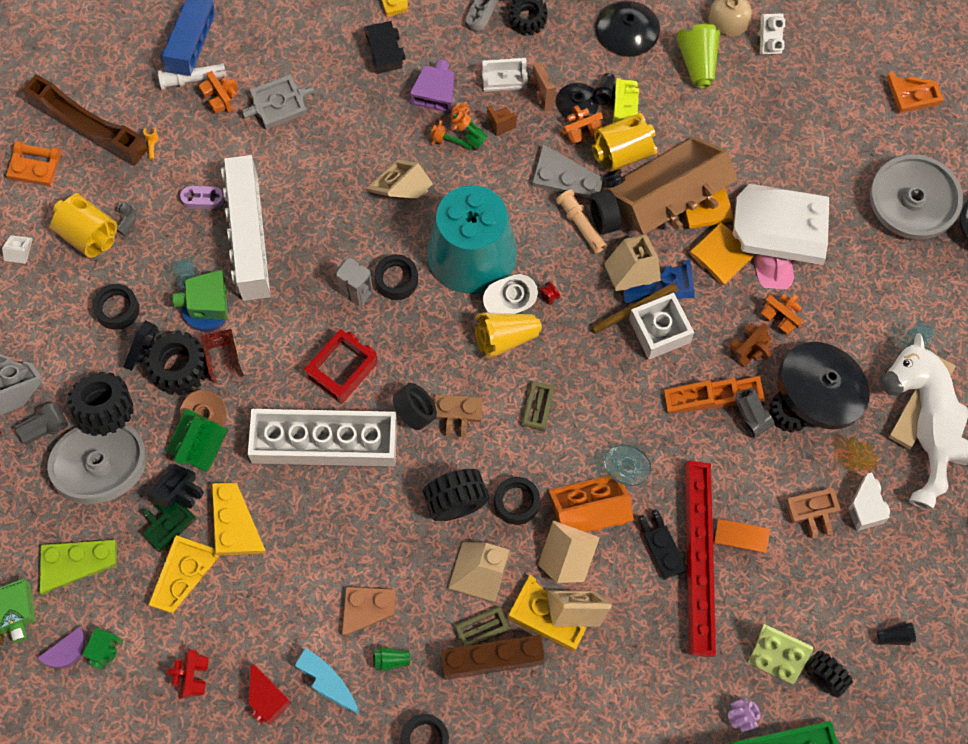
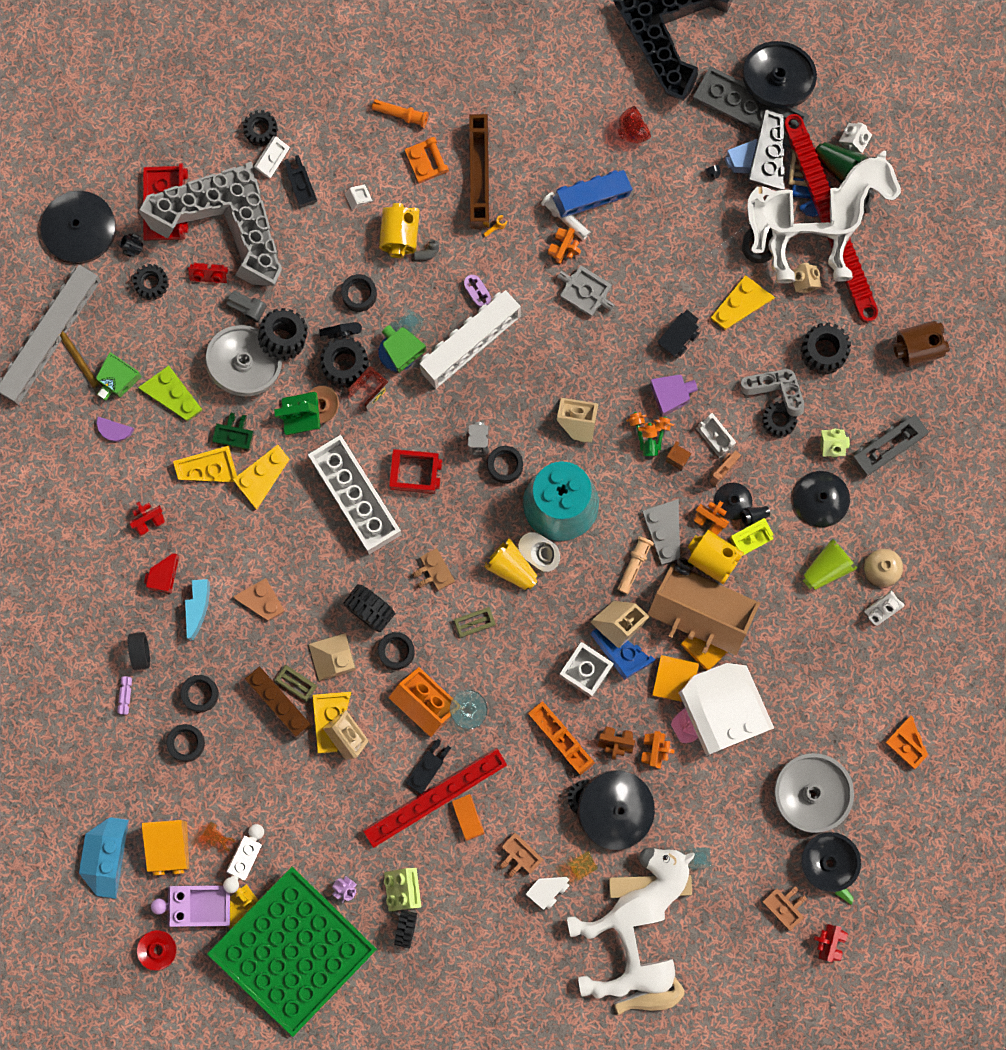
camera: 60 degrees right, 10 degrees up
(101, 648) = (128, 451): green brick -> none
(172, 488) = (258, 420): black hinge -> none
(387, 659) = (237, 637): green cone -> none
(414, 406) = (405, 537): black tyre -> none
(549, 293) = (563, 577): red bush -> none
(567, 553) = (378, 708): tan slope -> none
(605, 211) = (649, 576): black tyre -> none
(621, 315) = (579, 638): pearl gold bar -> none
(755, 416) = (561, 774): dark grey piece -> none
(897, 634) = (466, 962): black cone -> none

